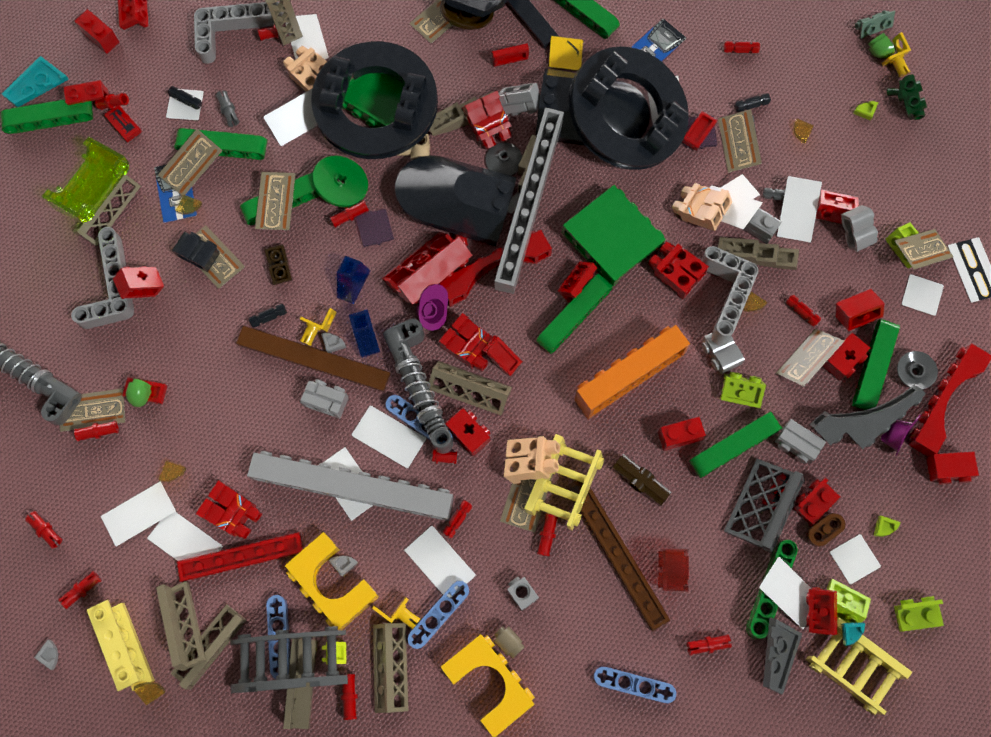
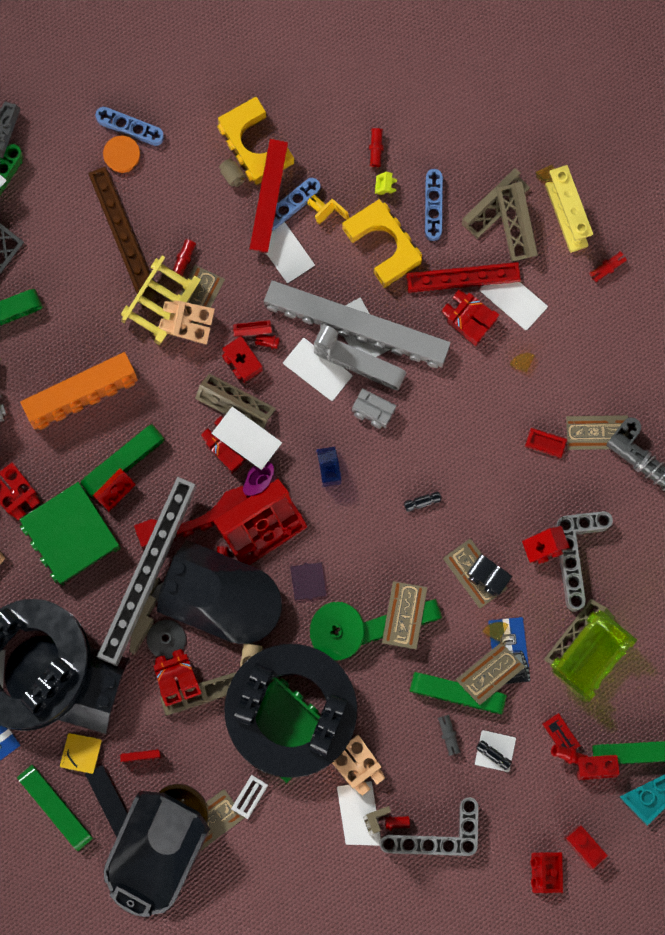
camera: 175 degrees left, 5 degrees up
(43, 530) = (641, 323): red pin -> none
(48, 655) = (637, 217): light grey tile -> none
(96, 430) = (591, 408): red pin -> none
(138, 392) = (550, 437): bright green piece -> none
(138, 513) = (555, 329): white sticker -> none
(278, 264) = (408, 552): dark brown slope -> none
(283, 680) = (428, 158): dark grey fence -> none
(292, 119) = (379, 711): white sticker -> none
(299, 699) = (416, 164): dark tan fence -> none
(312, 328) = (377, 481): yellow bracket -> none
(313, 358) = (382, 452): reddish brown tile -> none
(332, 342) = (361, 466): light grey tile -> none
(343, 564) = (370, 259): light grey tile -> none
(349, 213) = (332, 596): red pin -> none
(351, 279) = (336, 523): clear blue slope -> none
(373, 452) = (355, 360): none -> light grey beam
(386, 667) = (342, 166): dark tan fence -> none
(408, 366) = (291, 428): dark grey piece -> none
(414, 37) = (241, 811): none -> white tile
(415, 424) = (289, 375): medium blue beam -> none
(451, 347) = (246, 438): none -> white sticker
(457, 519) = (263, 283): red axle -> none
(462, 466) = (252, 328): none -> red tile
(462, 617) = (268, 195): none -> red tile
(502, 355) = (199, 425): red tile -> none
(520, 99) = (139, 694): light grey brick -> none
(522, 603) = (210, 204): light grey brick -> none
(637, 649) = (121, 154): none -> orange tile
(641, 480) = (89, 294): dark brown piece -> none
(674, 570) = (76, 209): clear red brick -> none
(681, 433) = (44, 330): red brick -> none
(708, 644) = (59, 148): red pin -> none

